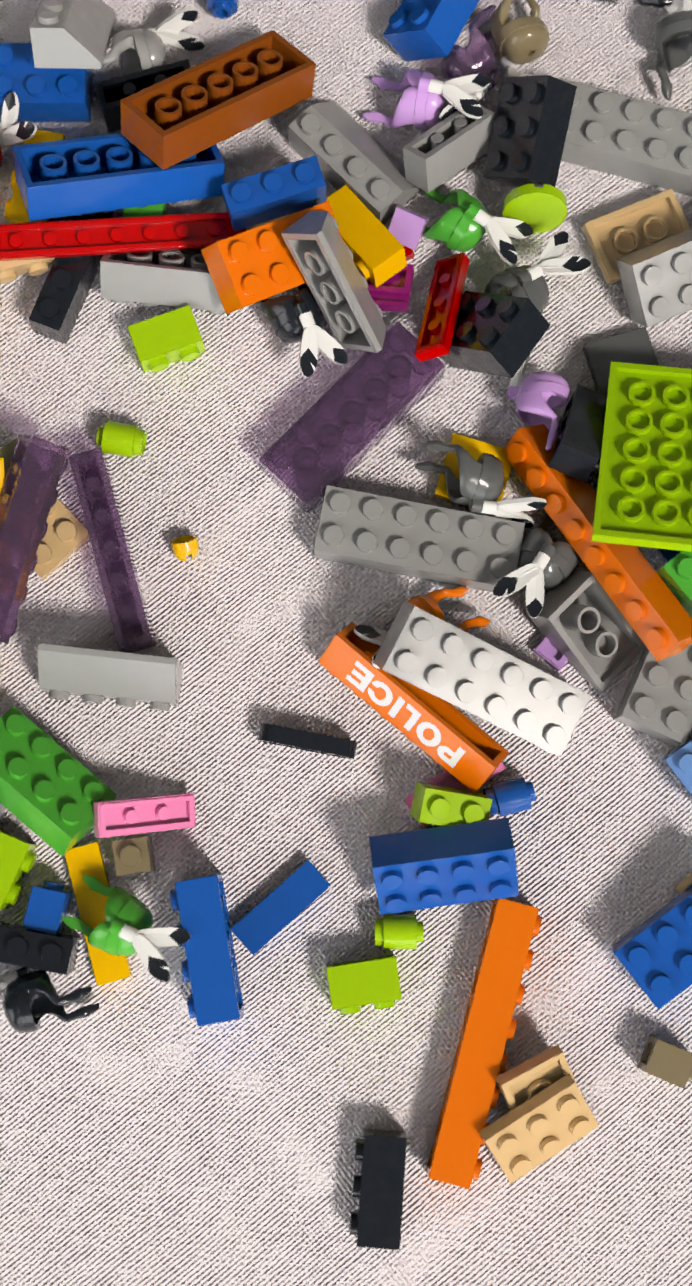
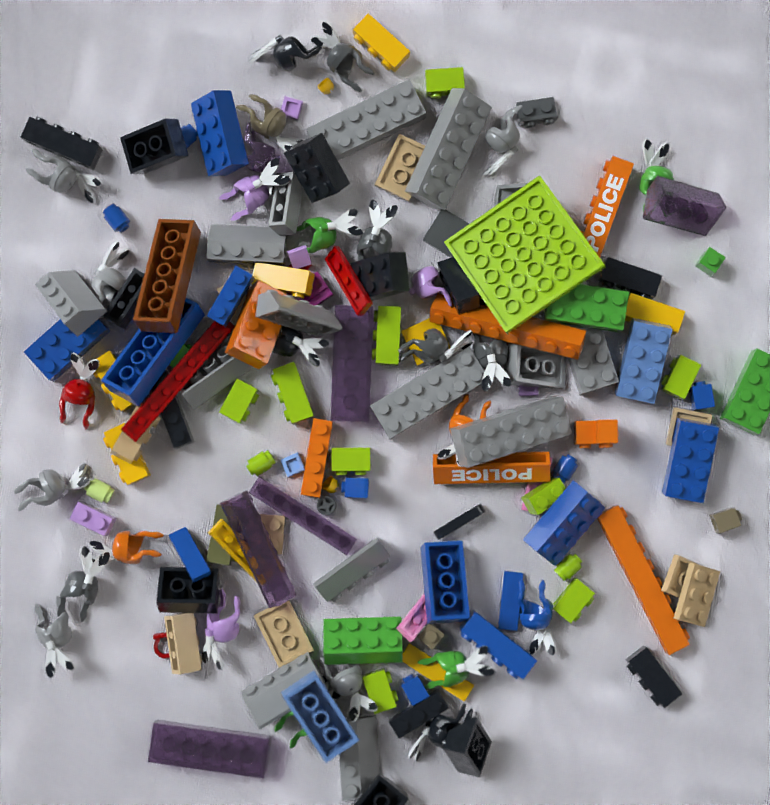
camera: 35 degrees left, 5 degrees up
(42, 1051) = (468, 747): none -> black slope
(149, 563) = (326, 505): none -> dark grey wheel
(161, 479) = (293, 464): none -> light blue tile
(198, 494) = (316, 457): none -> orange brick
(214, 577) = (355, 487): none -> blue slope
(214, 801) = (444, 582): none -> blue brick
(239, 537) = (351, 460): none -> lime brick
(243, 388) = (292, 393): none -> lime brick
(294, 963) = (537, 618): none -> blue hair
(428, 420) = (387, 335): none -> lime brick
(537, 206) = (348, 199): lime tile -> none
(562, 49) = (292, 107): none -> lavender tile
(598, 789) = (596, 432): none -> orange brick
(629, 59) = (325, 86): none -> yellow hinge

